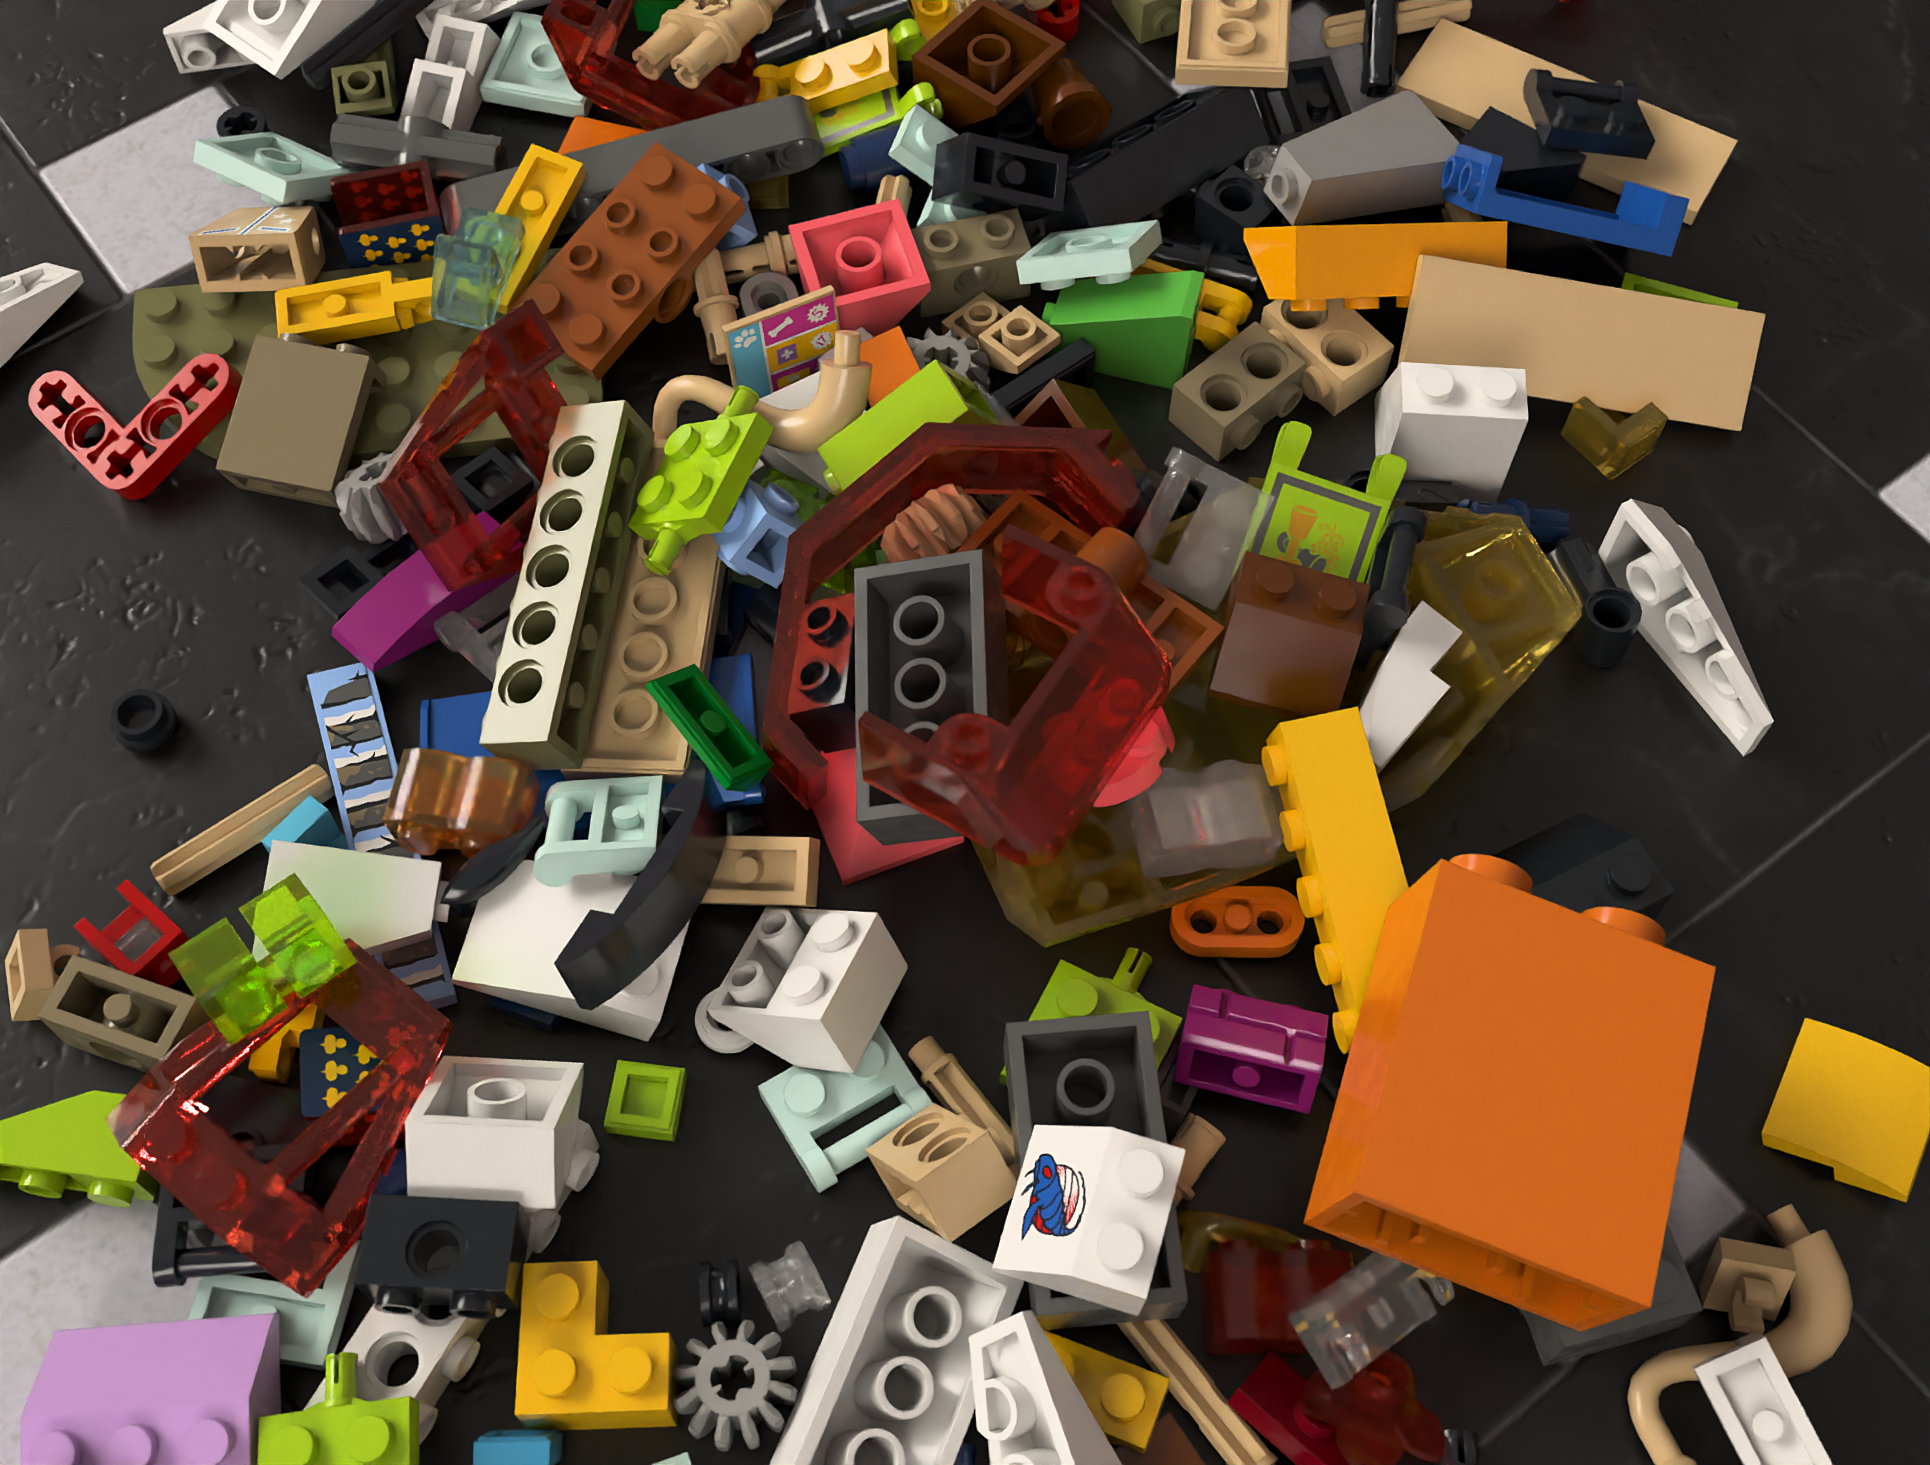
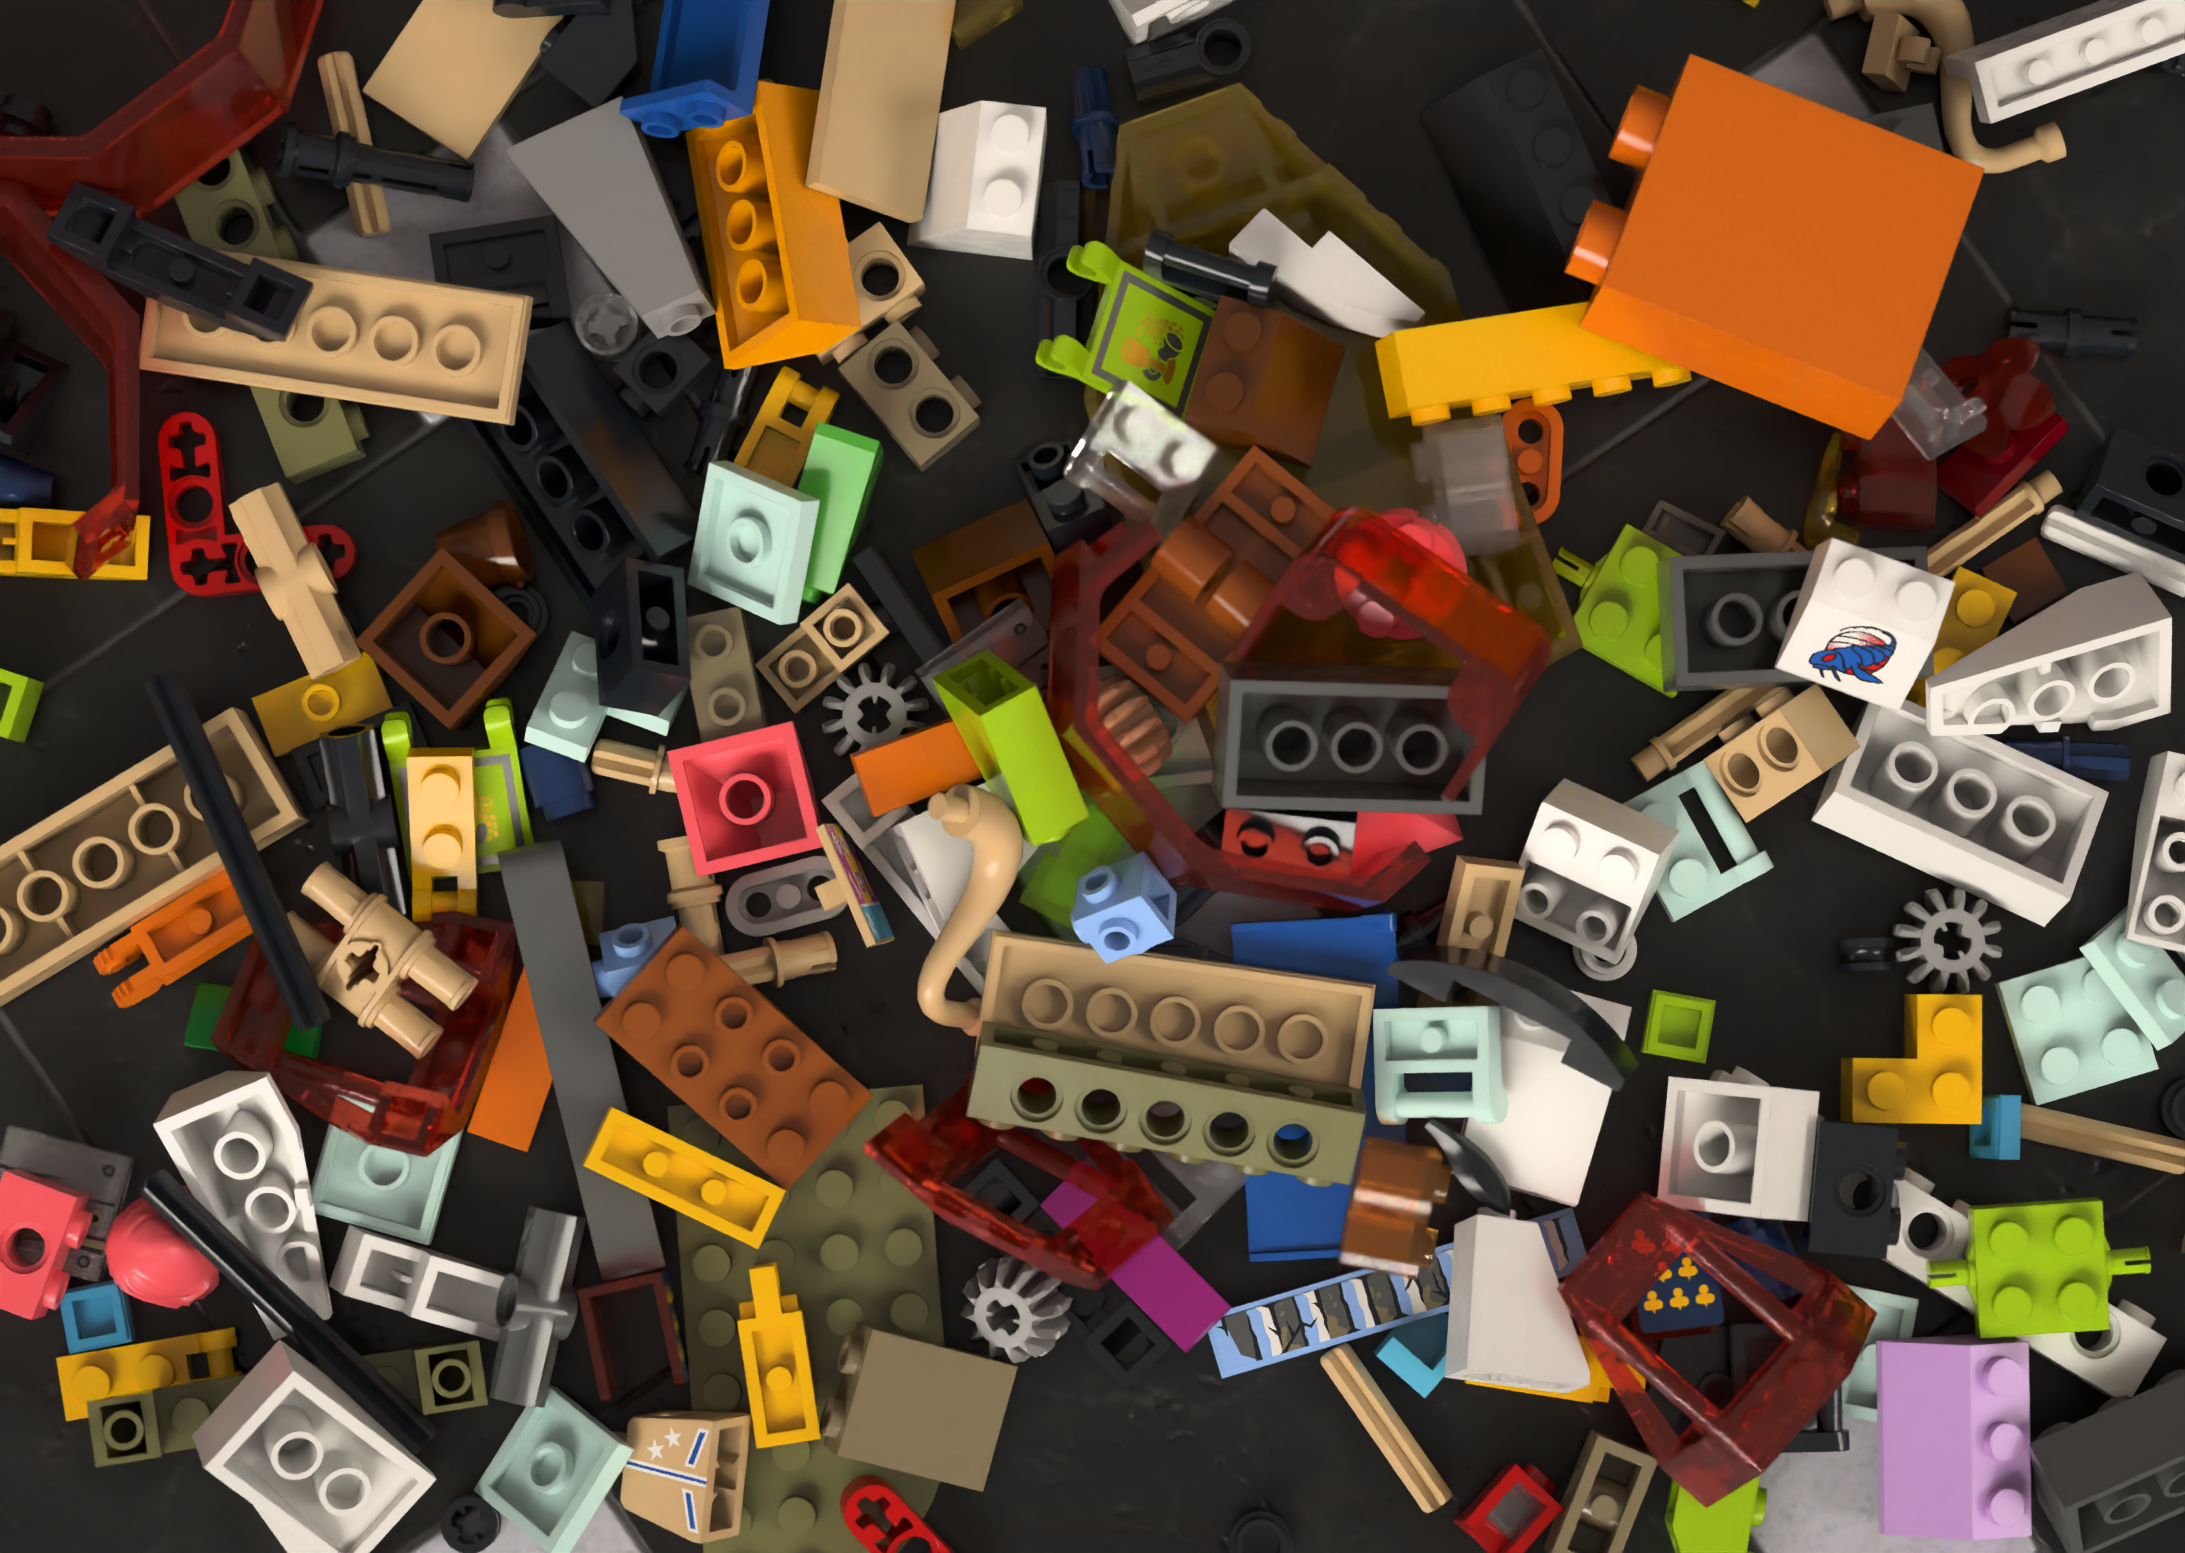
camera: 90 degrees left, 25 degrees up
(248, 993) = (1616, 1387): clear neon green piece -> none
(474, 267) = (746, 1221): clear light blue slope -> none
(700, 478) = (1069, 966): lime plate -> none
(711, 728) = (1351, 958): green slope -> none
(789, 1286) = (1863, 893): clear wheel -> none
(1251, 1048) = (1663, 463): magenta brick -> none

